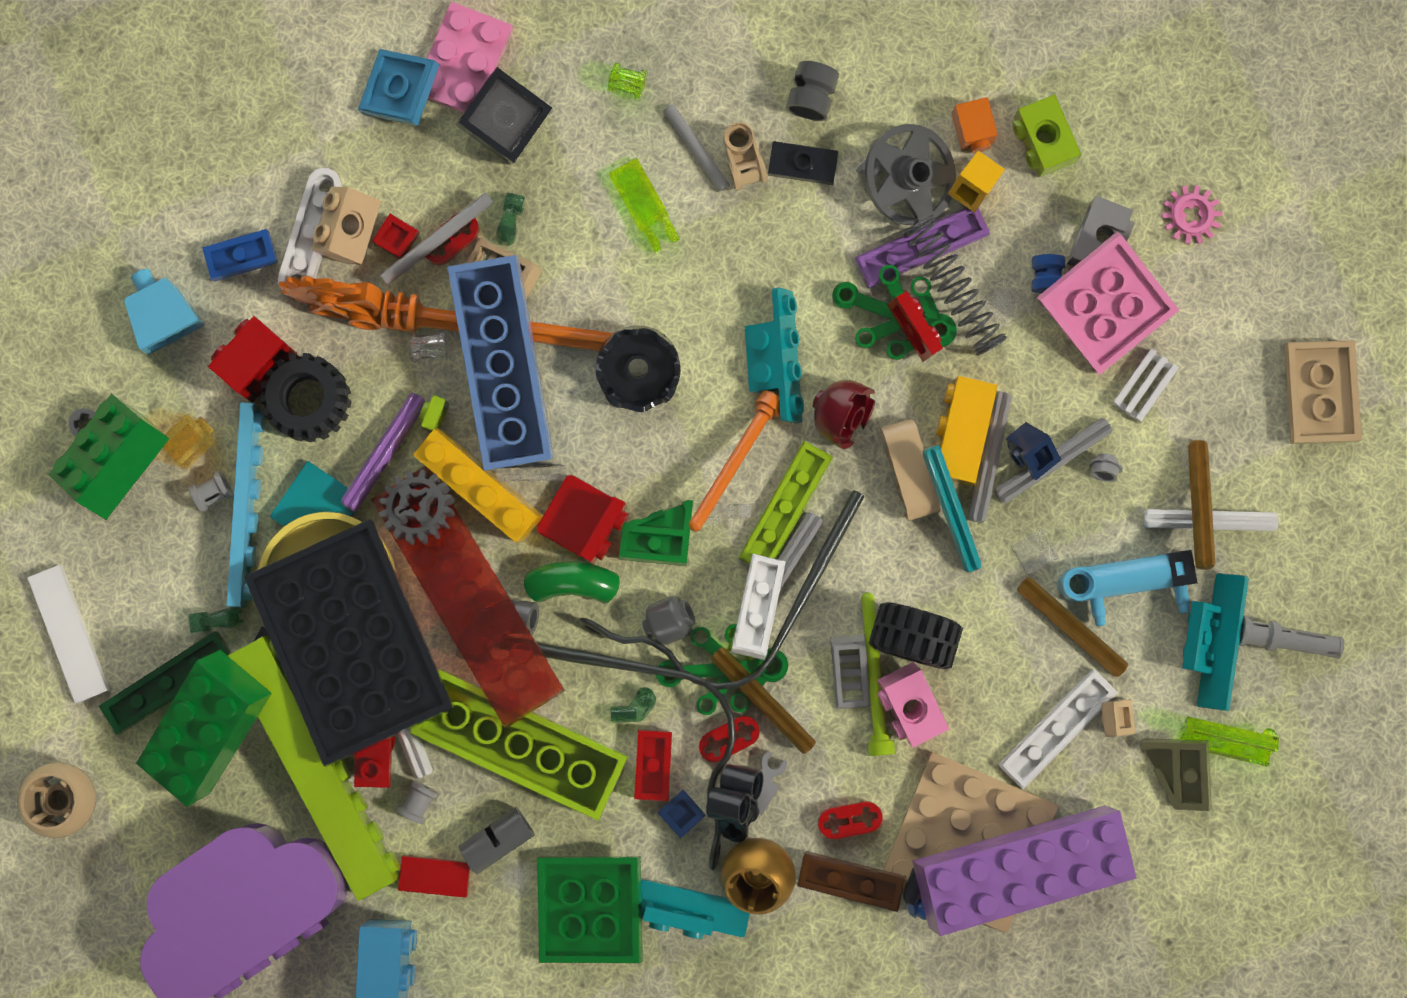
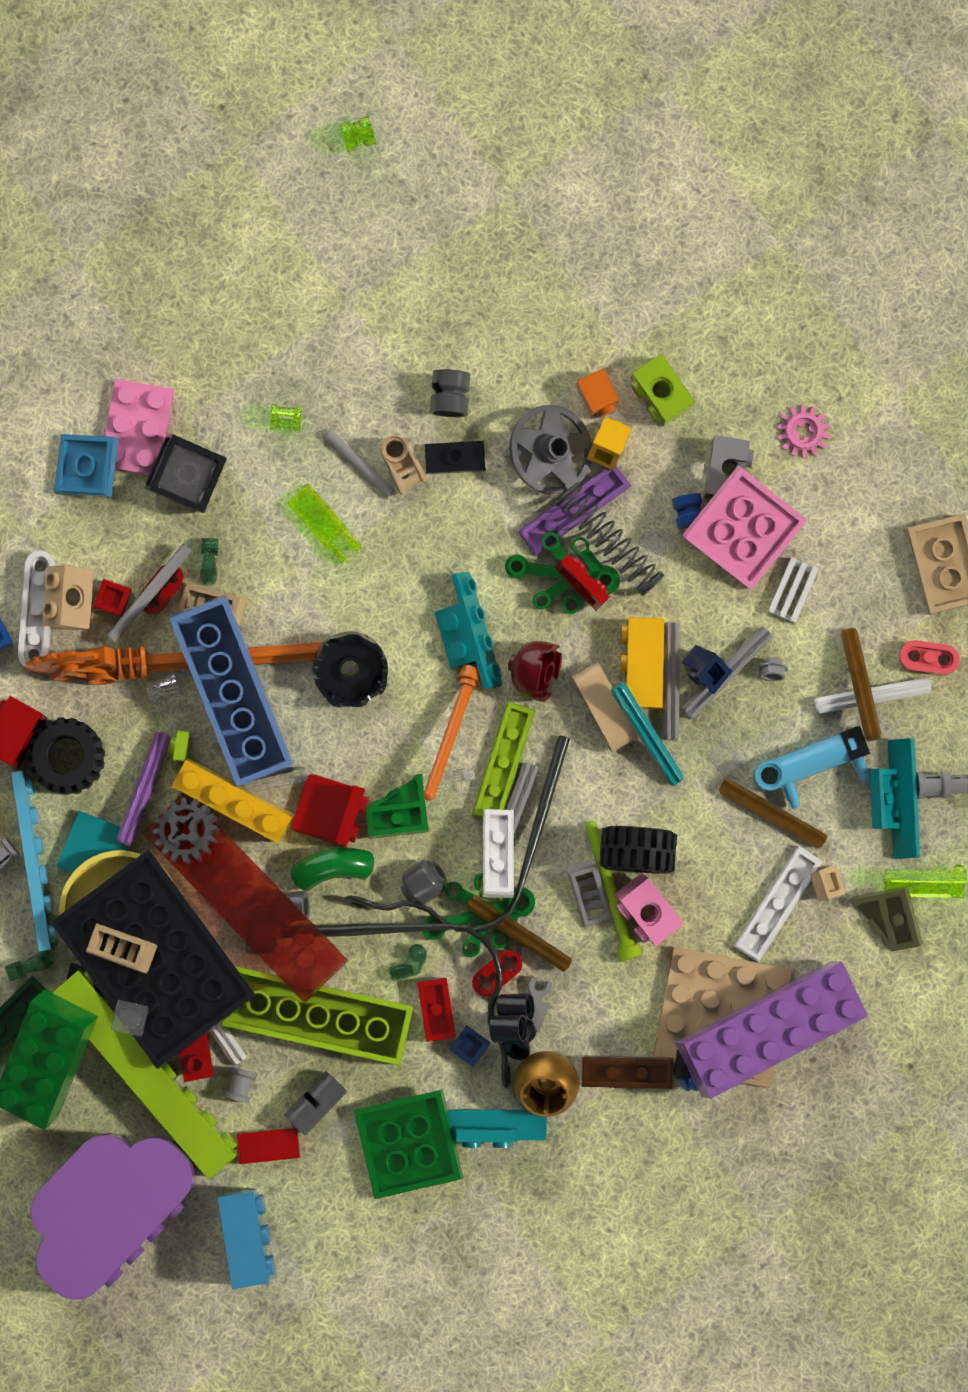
camera: 20 degrees left, 0 degrees up
(305, 703) = (129, 1018): none -> clear plate
(334, 632) = (140, 953): none -> tan slope
(851, 828) = (613, 1013): red beam -> none
(1281, 490) = (928, 657): none -> coral plate

